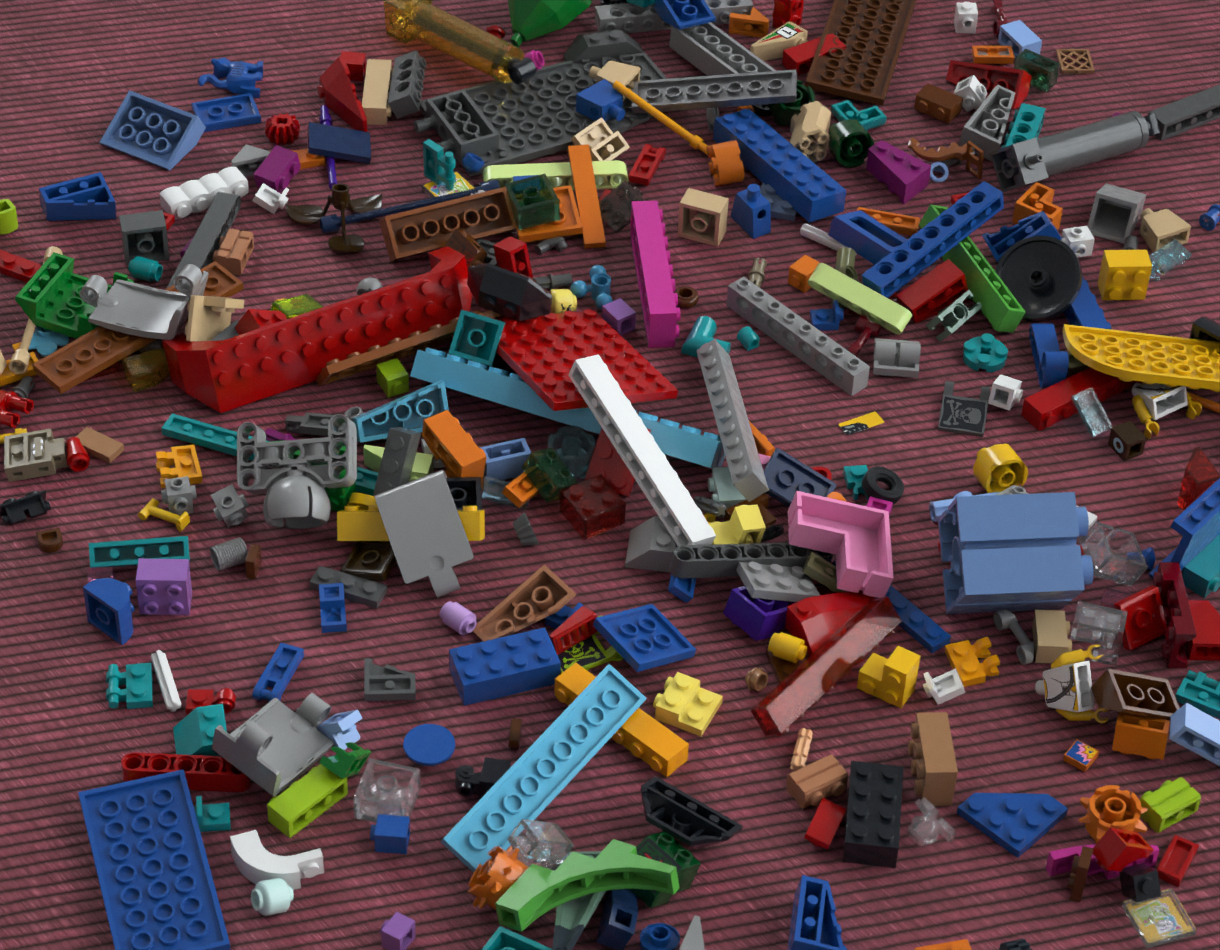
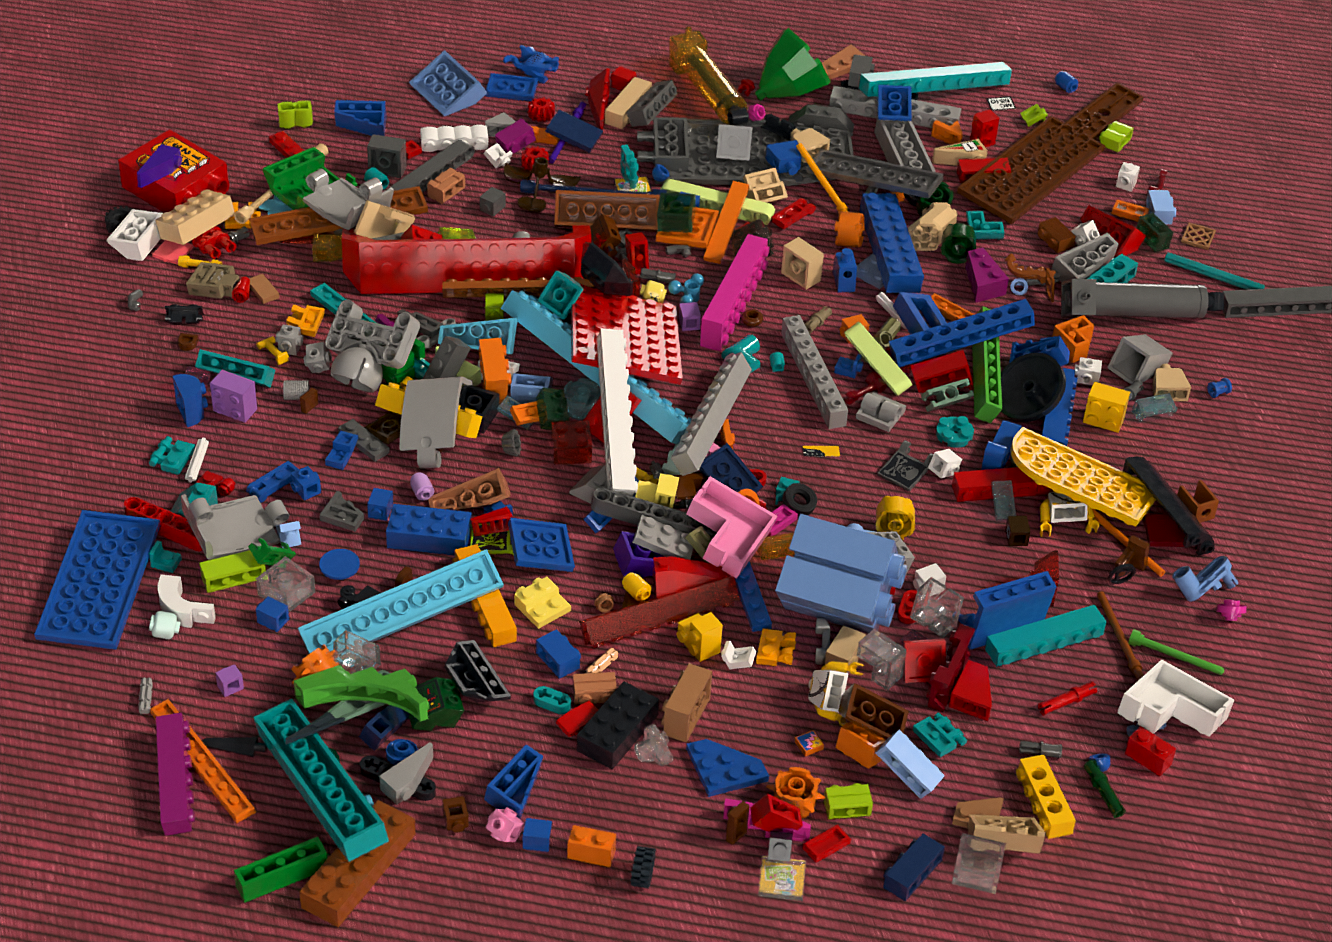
camera: 25 degrees right, 0 degrees up
(302, 254) = (492, 201): none -> dark grey brick
(315, 188) = (530, 154): none -> red gear
(322, 661) = (305, 483): none -> blue brick
(425, 656) = (380, 504): none -> blue brick
(538, 101) = (734, 142): none -> tile
(577, 71) = (773, 125): none -> black hinge
(749, 757) = (558, 653): none -> blue brick
(777, 813) = (552, 699): none -> teal beam
(904, 542) = (776, 546): none -> clear yellow bracket
(1118, 96) = (1212, 272): none -> teal axle

